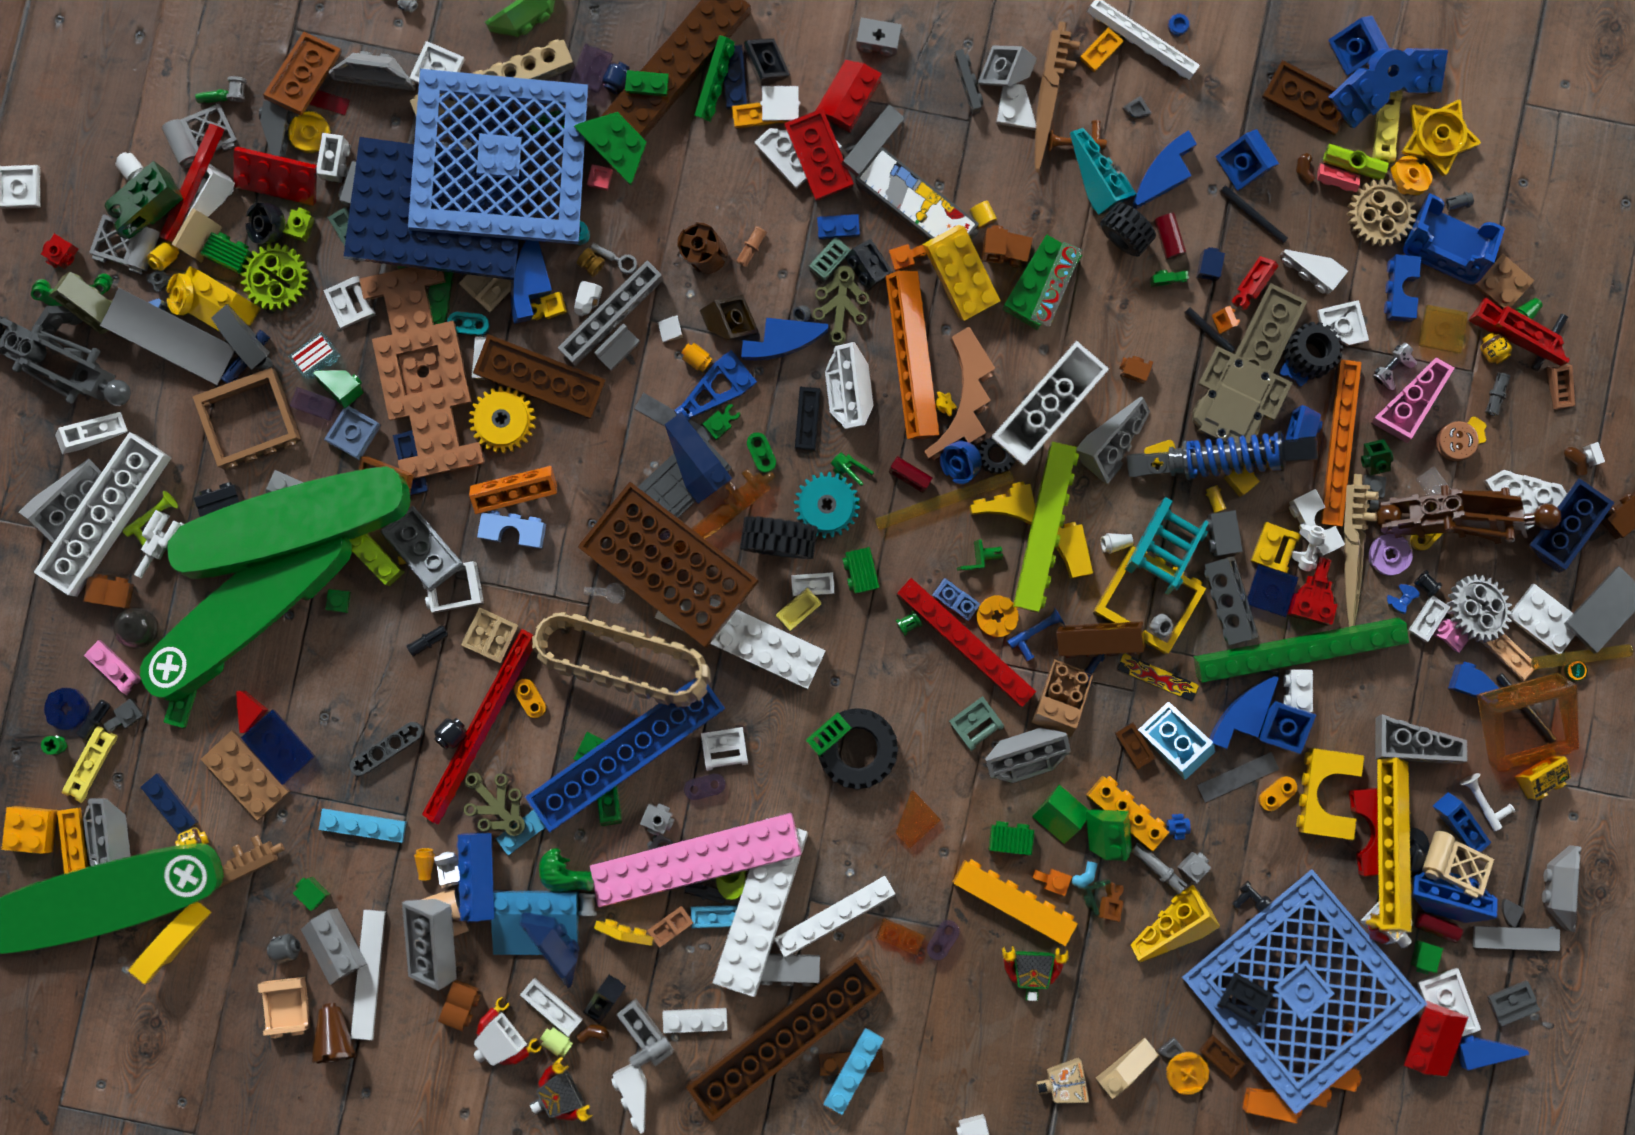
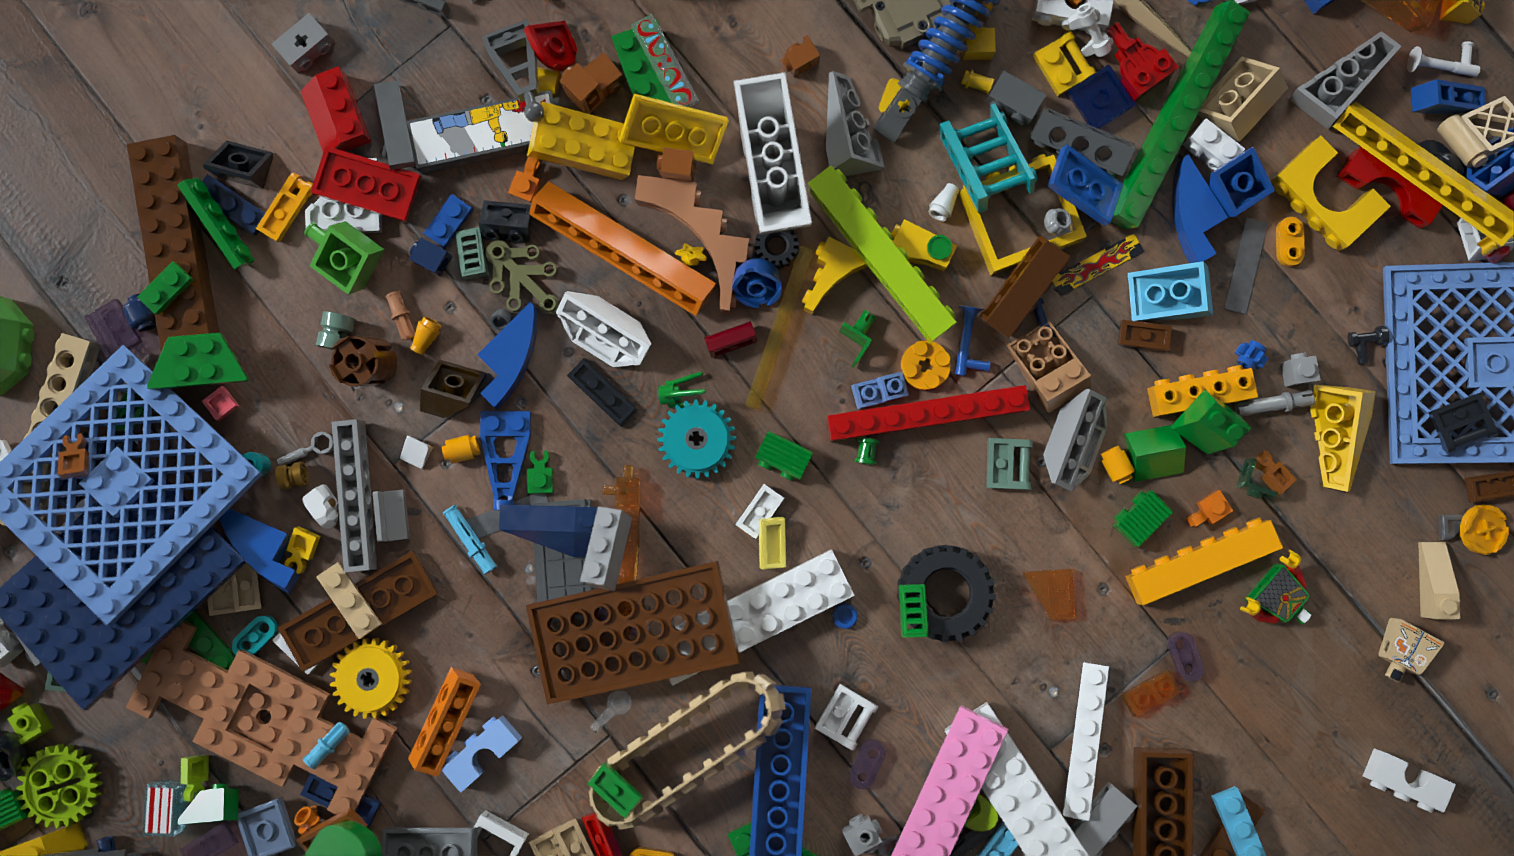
camera: 45 degrees left, 0 degrees up
(343, 306) = (138, 741): white plate -> none
(351, 356) = (193, 772): none -> lime plate
(380, 452) = (306, 818): none -> orange plate
(439, 426) = (326, 745): none -> medium azure axle
(492, 119) = (75, 460): none -> dark orange plate
(541, 365) = (349, 600): none -> tan plate
(560, 633) = (615, 790): none -> green plate
(639, 419) = (470, 540): none -> medium azure pin
(707, 212) = (334, 328): none -> sand green wheel
(708, 503) = (606, 549): none -> light grey brick
(752, 273) = (425, 334): none -> light orange cone
(760, 179) = (344, 255): none -> bright green brick
(762, 452) = (599, 460): green plate -> none
(778, 537) = (691, 508): black tyre -> none
(779, 103) = (289, 181): white piece -> none
(789, 695) = (844, 616): none -> blue tile
(805, 234) = (429, 256): none -> dark blue brick
(992, 169) = (507, 40): none -> dark grey plate
(996, 346) = (677, 164): none -> dark orange brick
(1010, 200) = (552, 44): none -> red tile
(1017, 325) = (662, 124): none -> yellow tile
(1033, 795) = (1117, 464): none -> light orange brick
(1081, 562) = (939, 247): none -> green piece
(1086, 878) = (1231, 476): medium azure arm -> none
(1202, 625) = (1085, 185): none -> blue plate
(1348, 684) = (1243, 97): none -> tan slope

